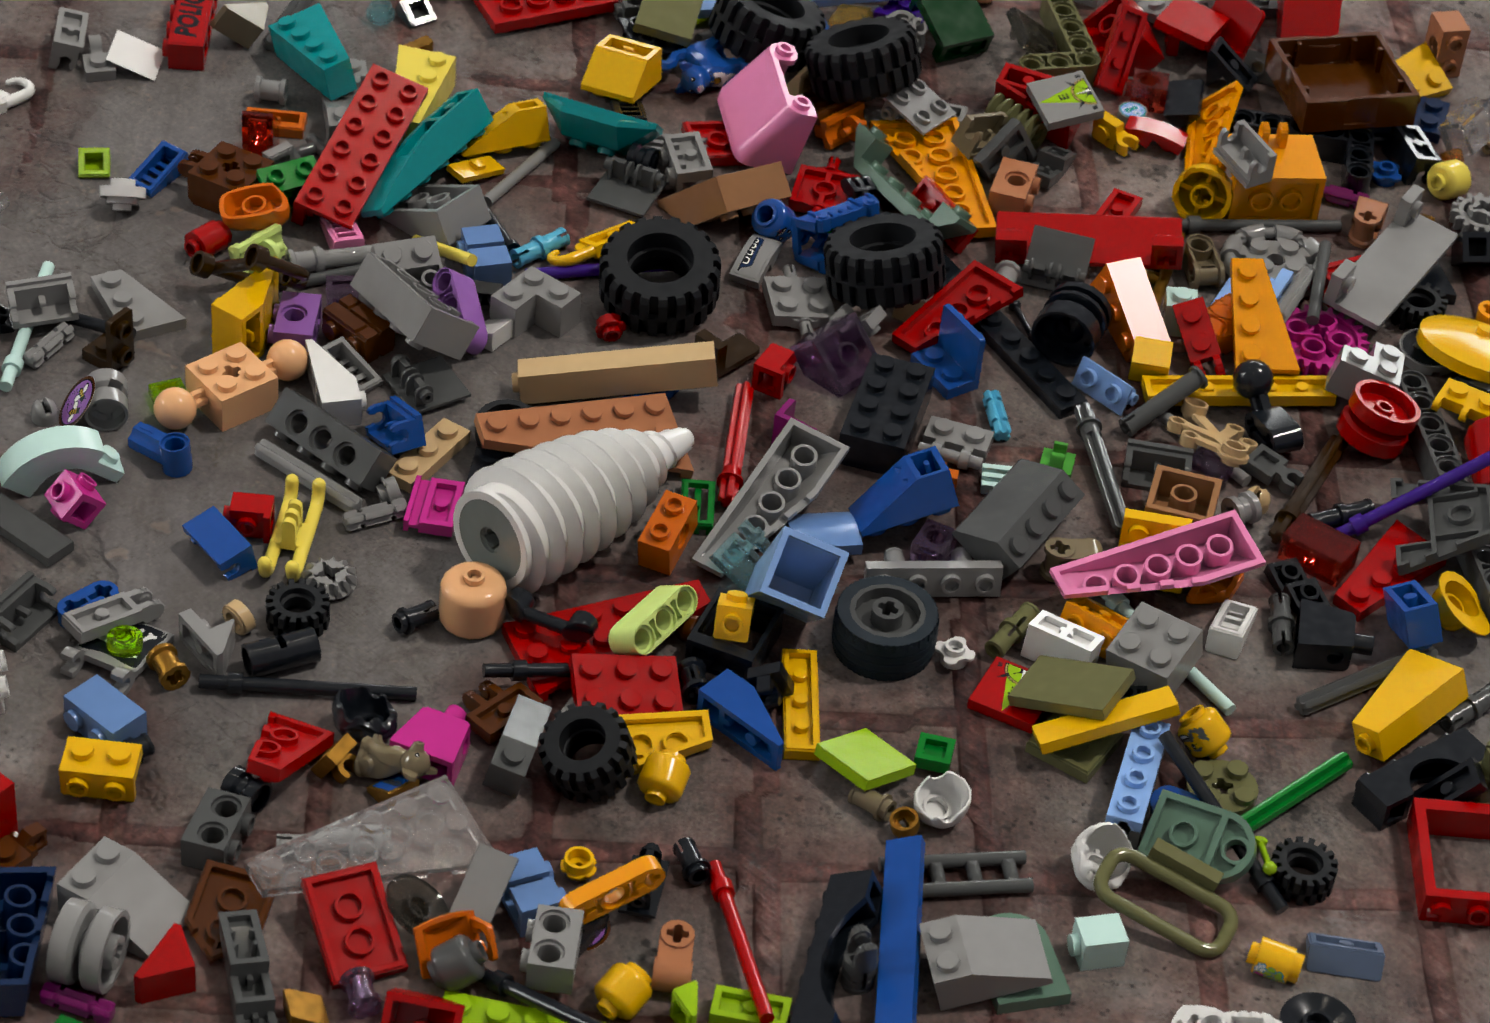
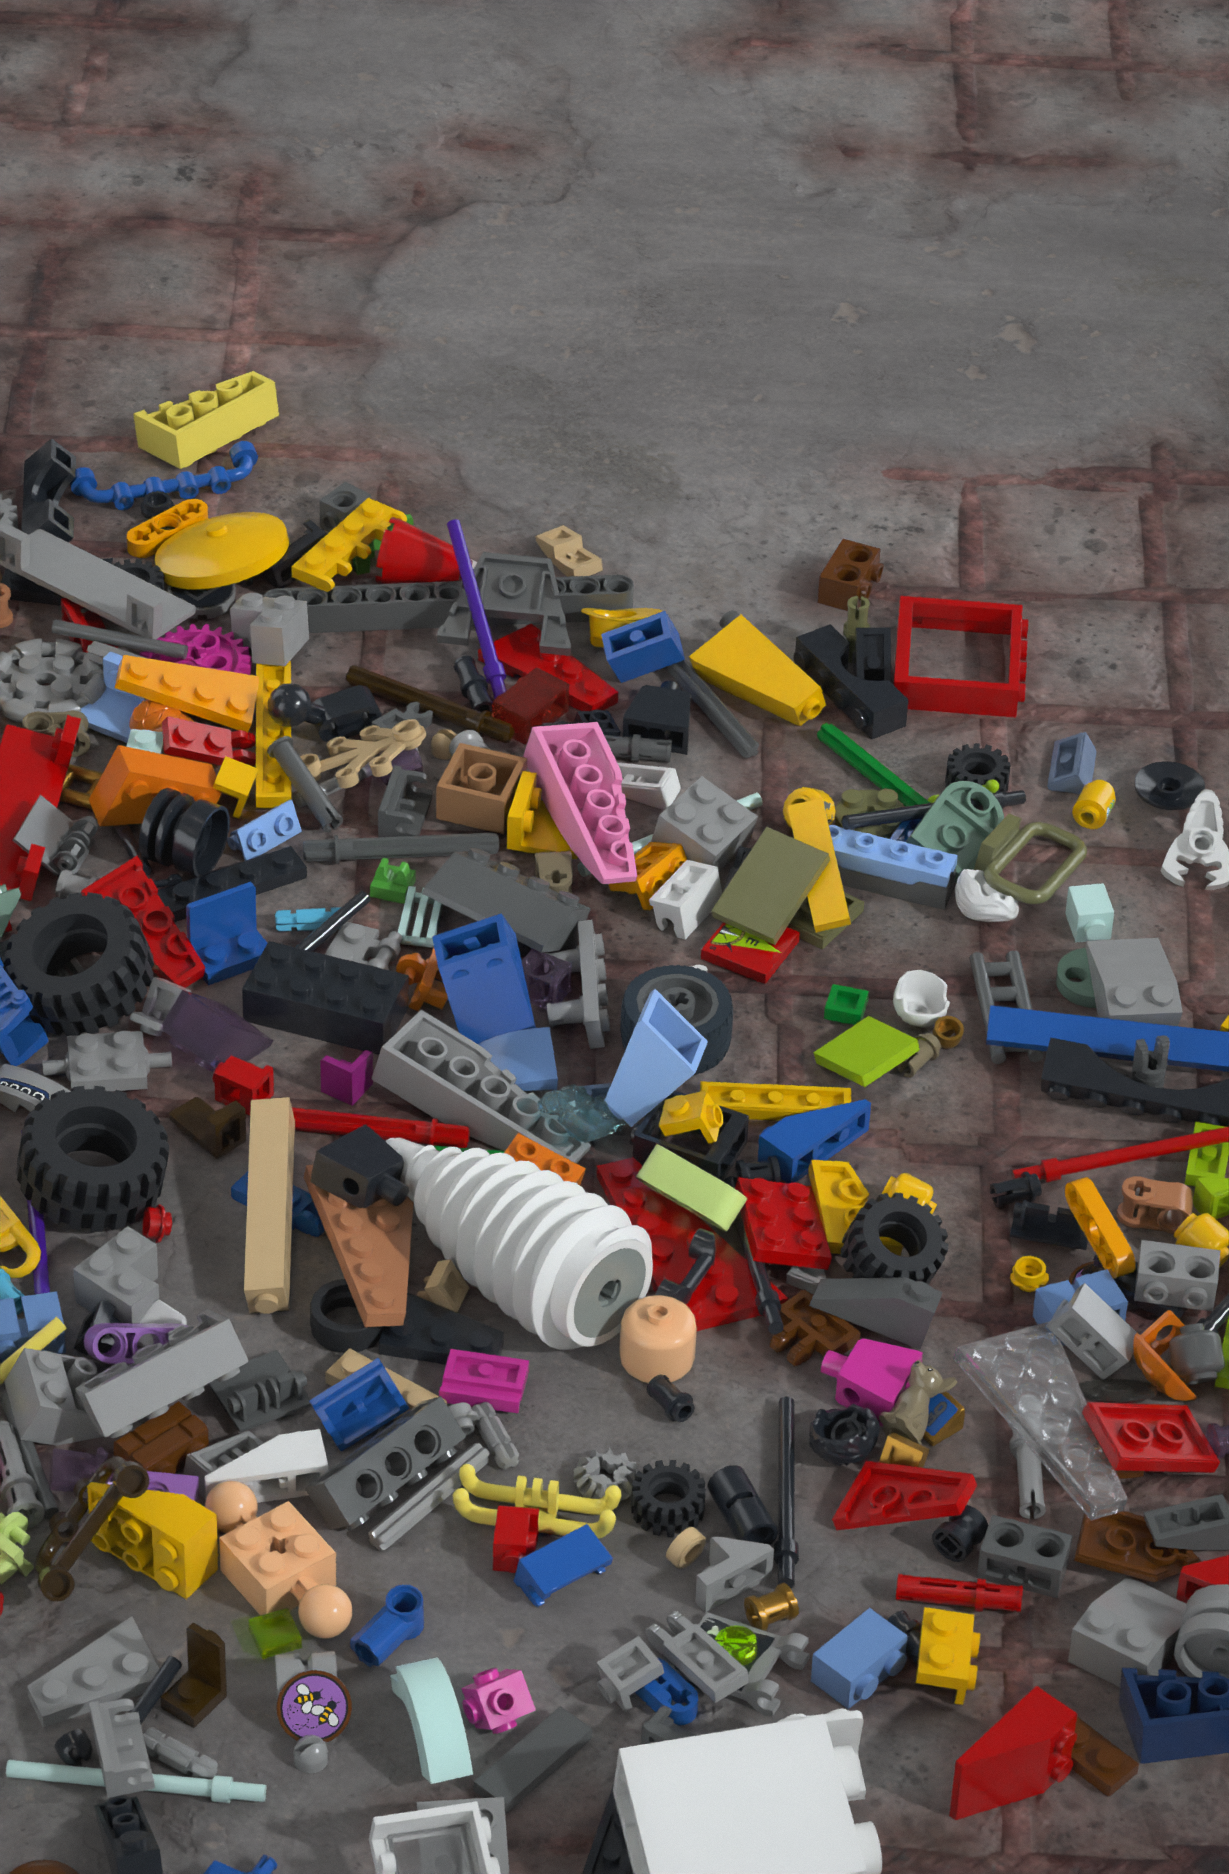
camera: 85 degrees left, 0 degrees up
(94, 570) = (627, 1672): none -> light grey bracket
(177, 799) = (961, 1593): none -> red pin
(648, 405) = (360, 1169): none -> black torso
(771, 683) = (771, 1109): black tile -> none
(977, 418) = (336, 921): none -> black bar
(1001, 642) = (660, 935): olive pin -> none
(1378, 419) = (342, 631): red wheel -> none

